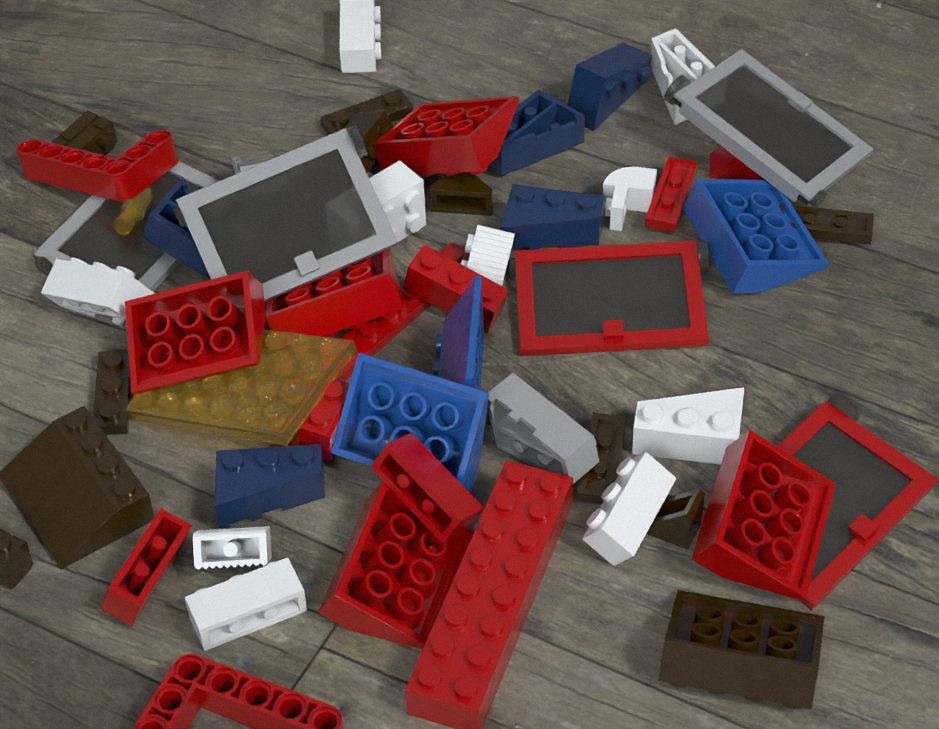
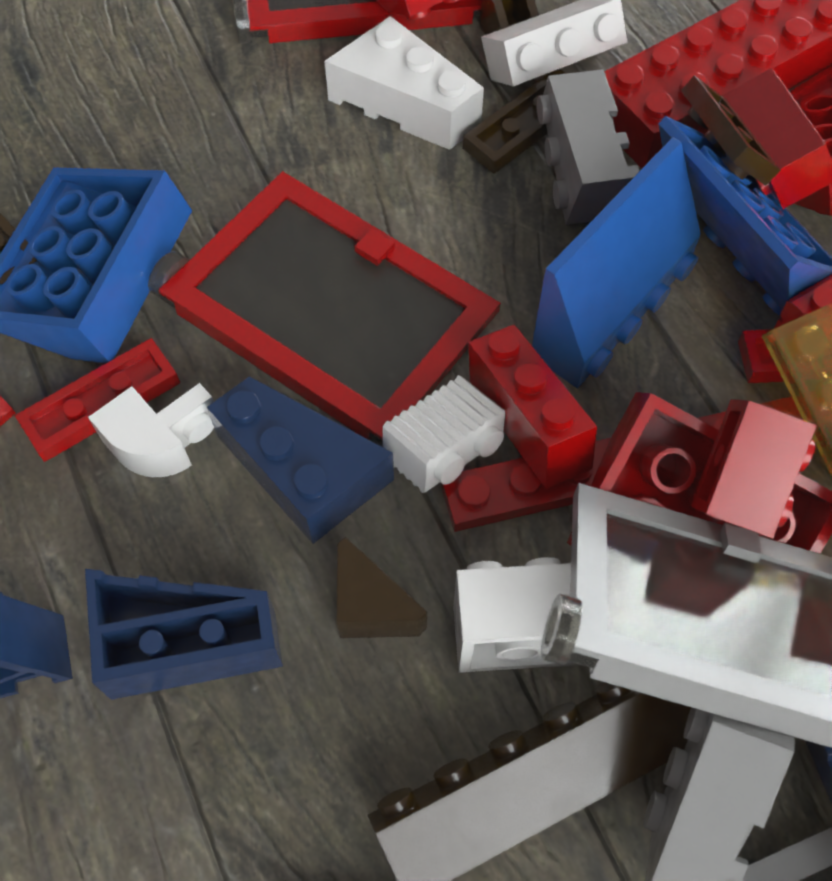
camera: 145 degrees left, 15 degrees up
(319, 277) = (754, 467): none -> brick
(448, 136) = (315, 691): red slope -> none
(455, 452) = (728, 133): none -> dark brown plate

